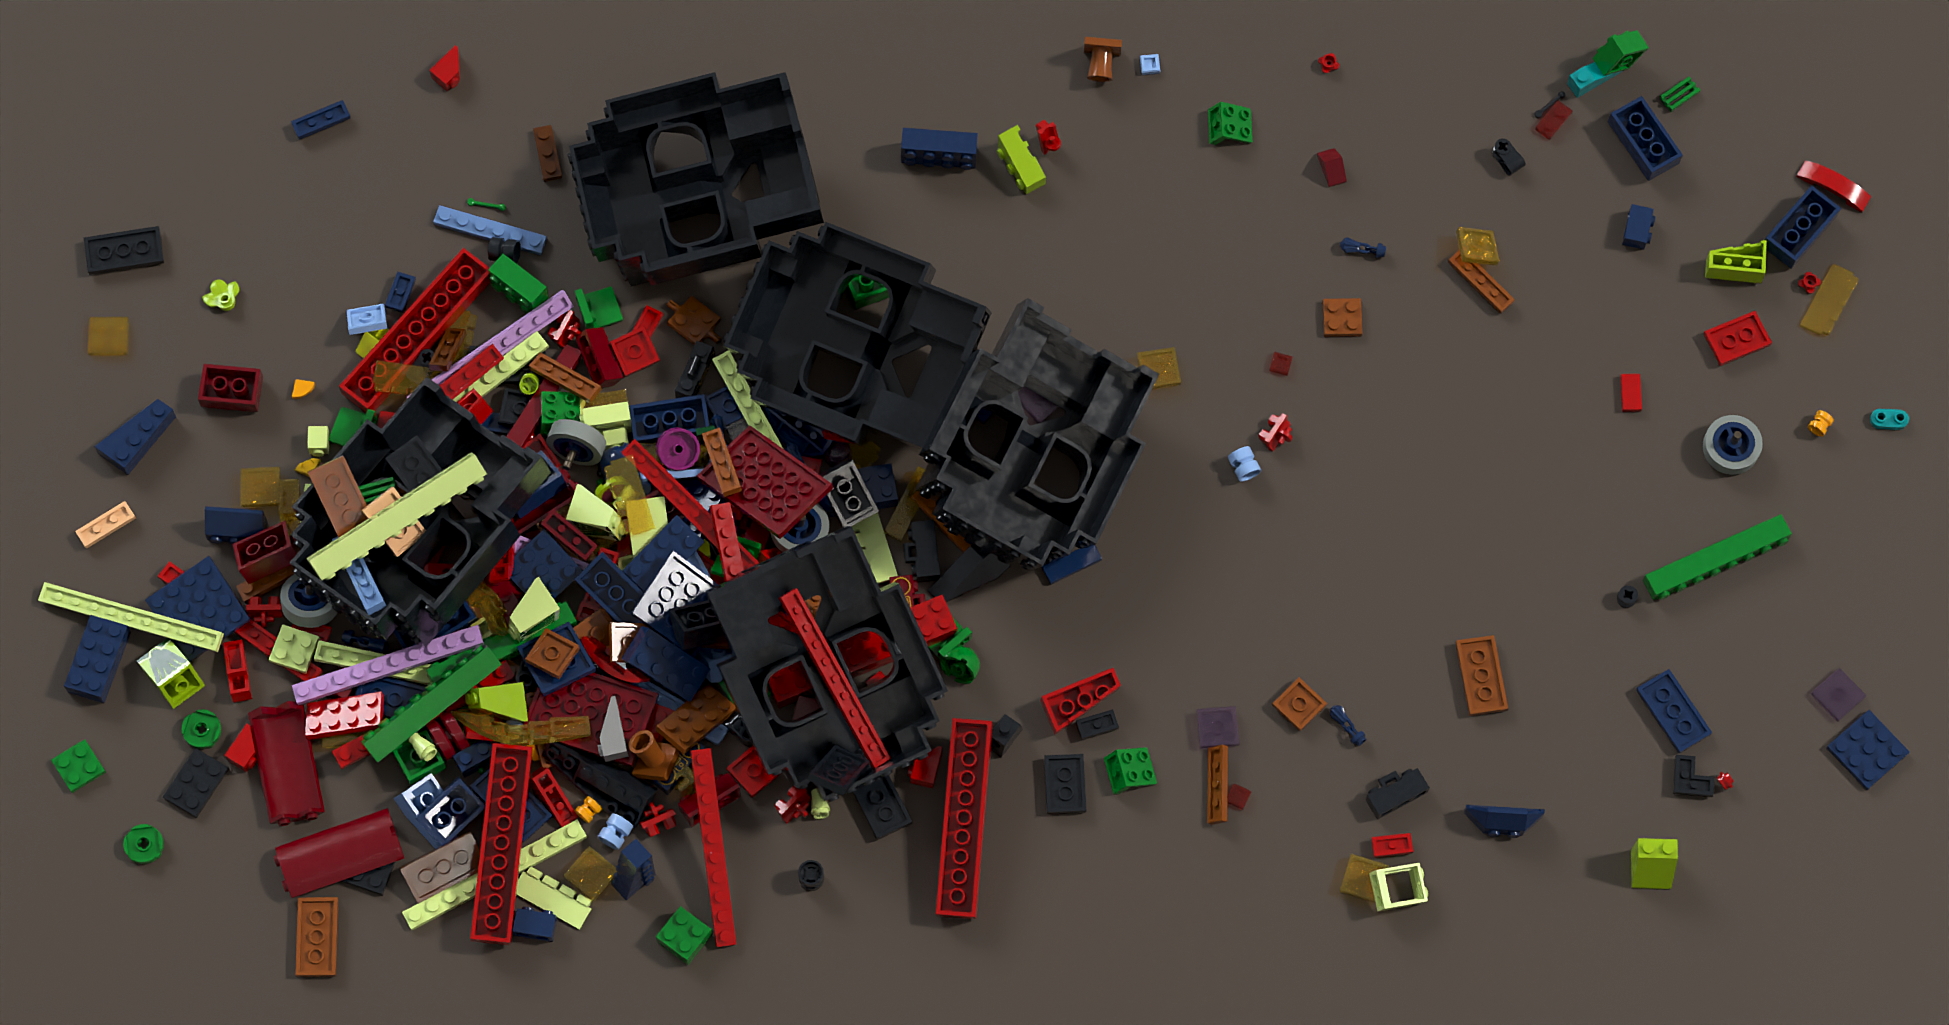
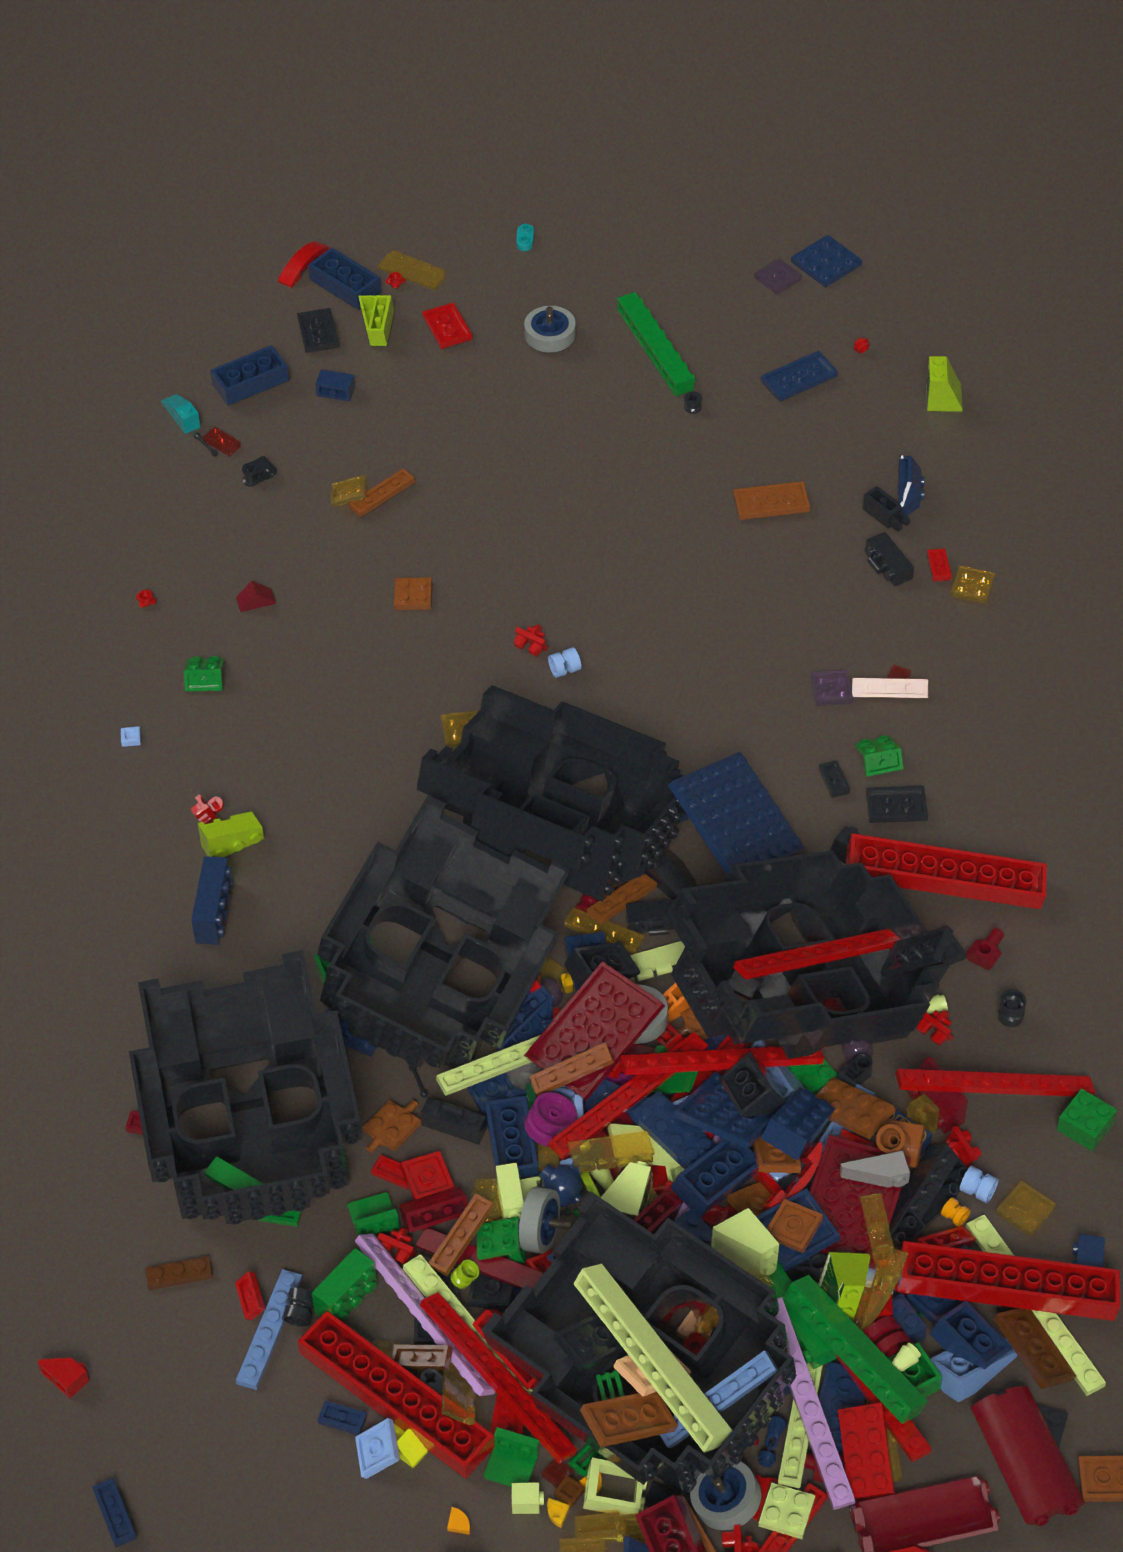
camera: 85 degrees left, 20 degrees down
(471, 202) = (232, 1350): green hinge -> none
(515, 212) = (250, 1295): none -> red plate
(547, 897) = (1058, 1237): yellowish green windscreen -> none
(613, 184) = (229, 1176): none -> green tile
(633, 870) = (1026, 1151): dark blue wedge -> none
(750, 773) = (897, 1056): red plate -> none
(887, 861) = (985, 951): none -> dark red piece
(1015, 614) = (735, 813): none -> dark blue plate
(1076, 699) = (811, 791): red wedge -> none
(1101, 59) = (122, 766): dark orange plant -> none
(1280, 363) = (458, 639): clear red tile -> none
(1299, 704) = (805, 628): dark orange plate -> none
(1339, 715) = (814, 600): dark blue piece -> none
(1350, 245) = (340, 584): dark blue piece -> none
(1381, 890) = (982, 565): yellowish green window -> none
(1466, 790) = (885, 509): none -> black hinge
(1620, 52) = (164, 383): green brick -> none
(1631, 393) = (496, 396): red tile -> none
(1687, 782) = (862, 370): black plate -> none
(1691, 85) = (212, 360): green tile -> none
(1724, 205) = (317, 330): none -> black plate
(1820, 423) = (528, 275): light orange wheel -> none

